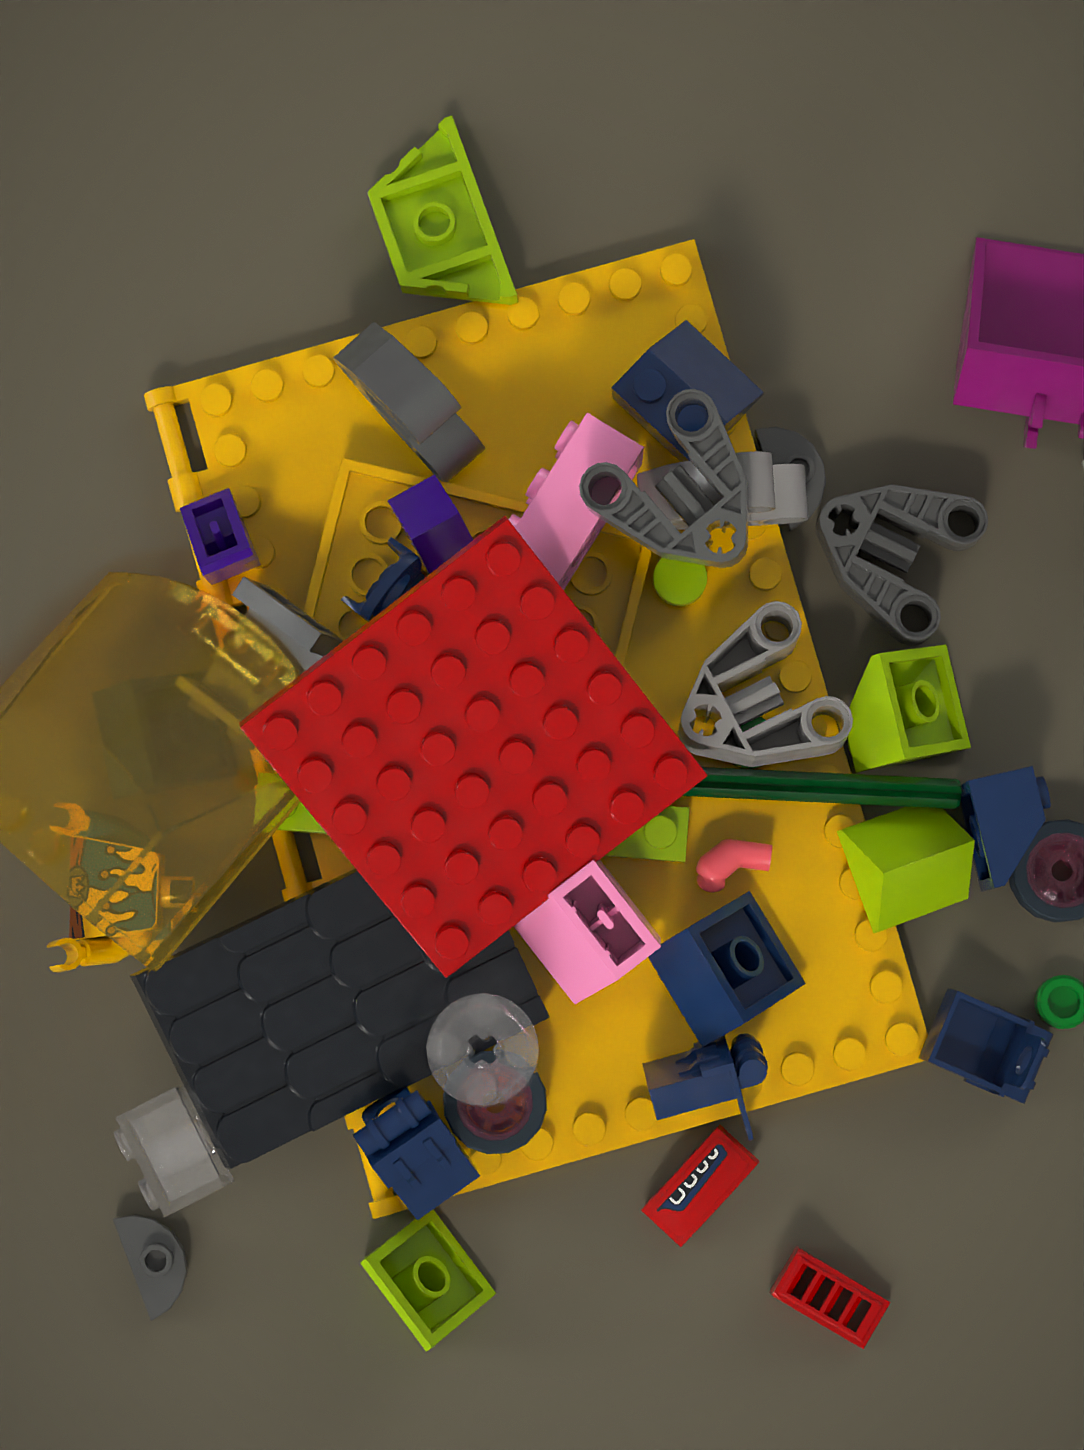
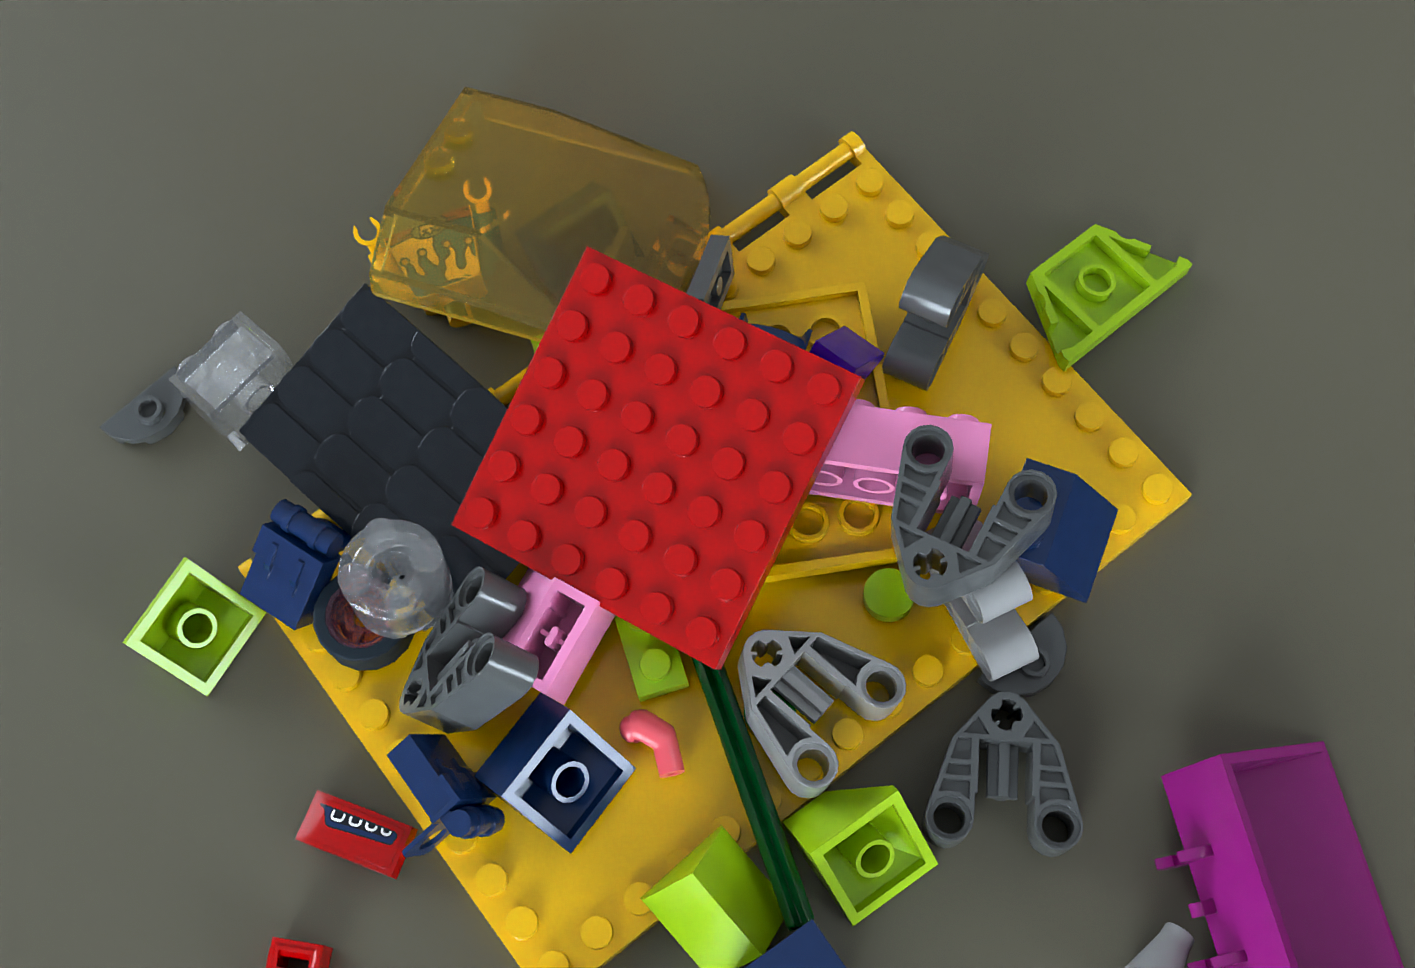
camera: 70 degrees right, 15 degrees down
(219, 537) = (754, 219): dark purple slope -> none
(597, 1030) = (464, 664): none -> dark grey connector

